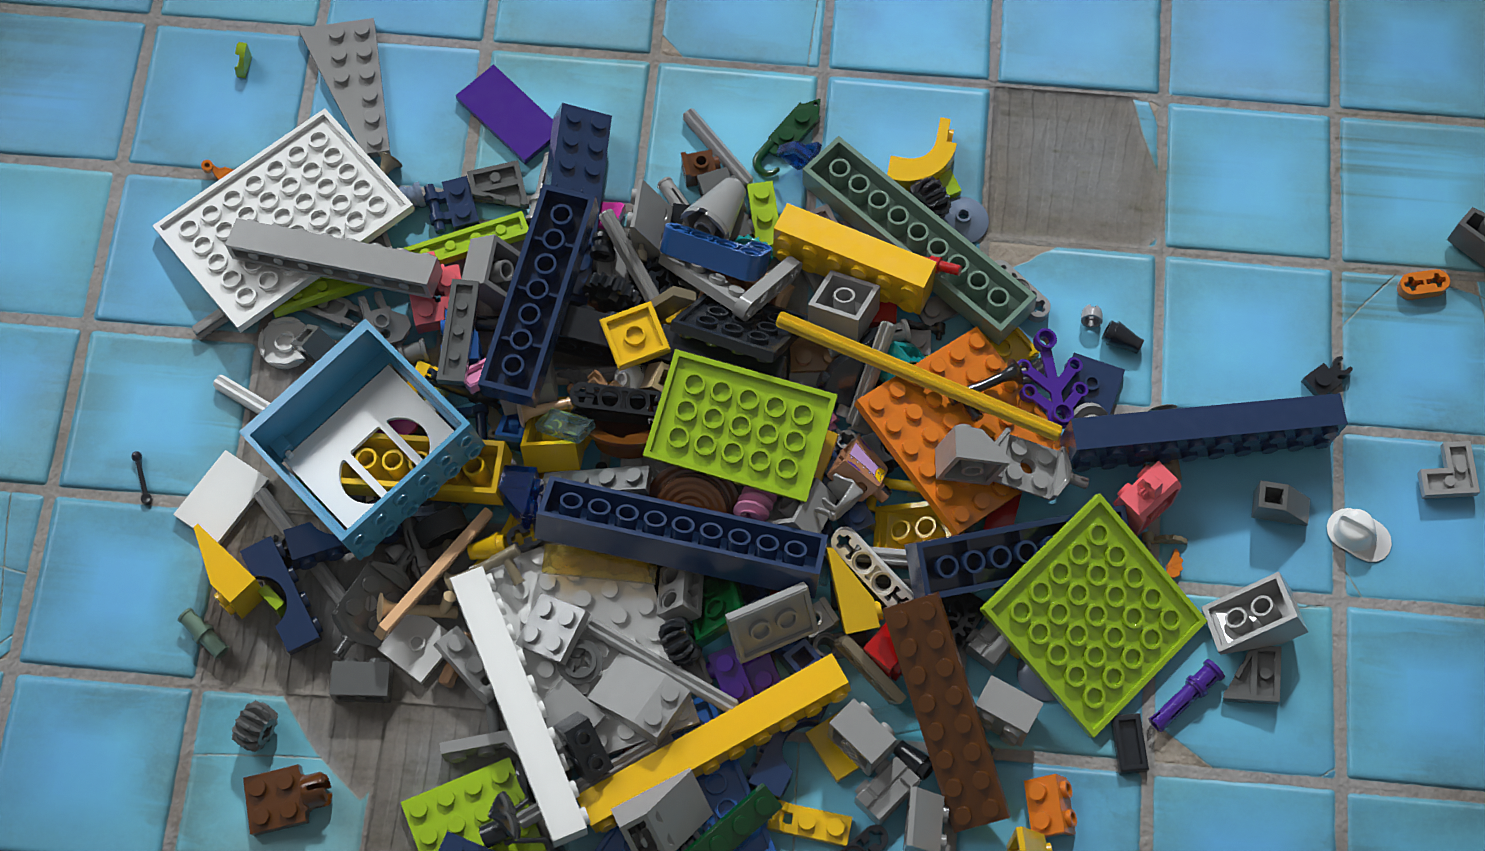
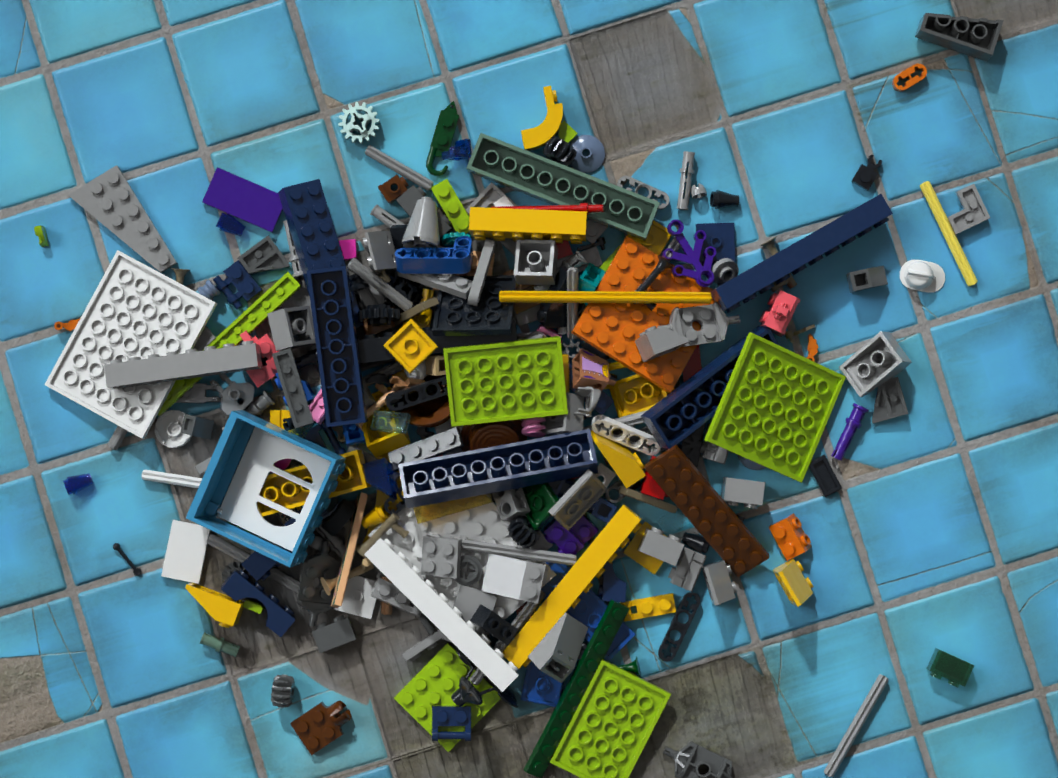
camera: 20 degrees left, 20 degrees up
(128, 357) = (77, 483): none -> clear blue cone
(476, 132) = (230, 224): none -> clear blue cone
(679, 82) = (350, 126): none -> light aqua gear
(1080, 296) = (688, 157): none -> light grey pin
(1414, 494) = (948, 233): none -> light yellow axle

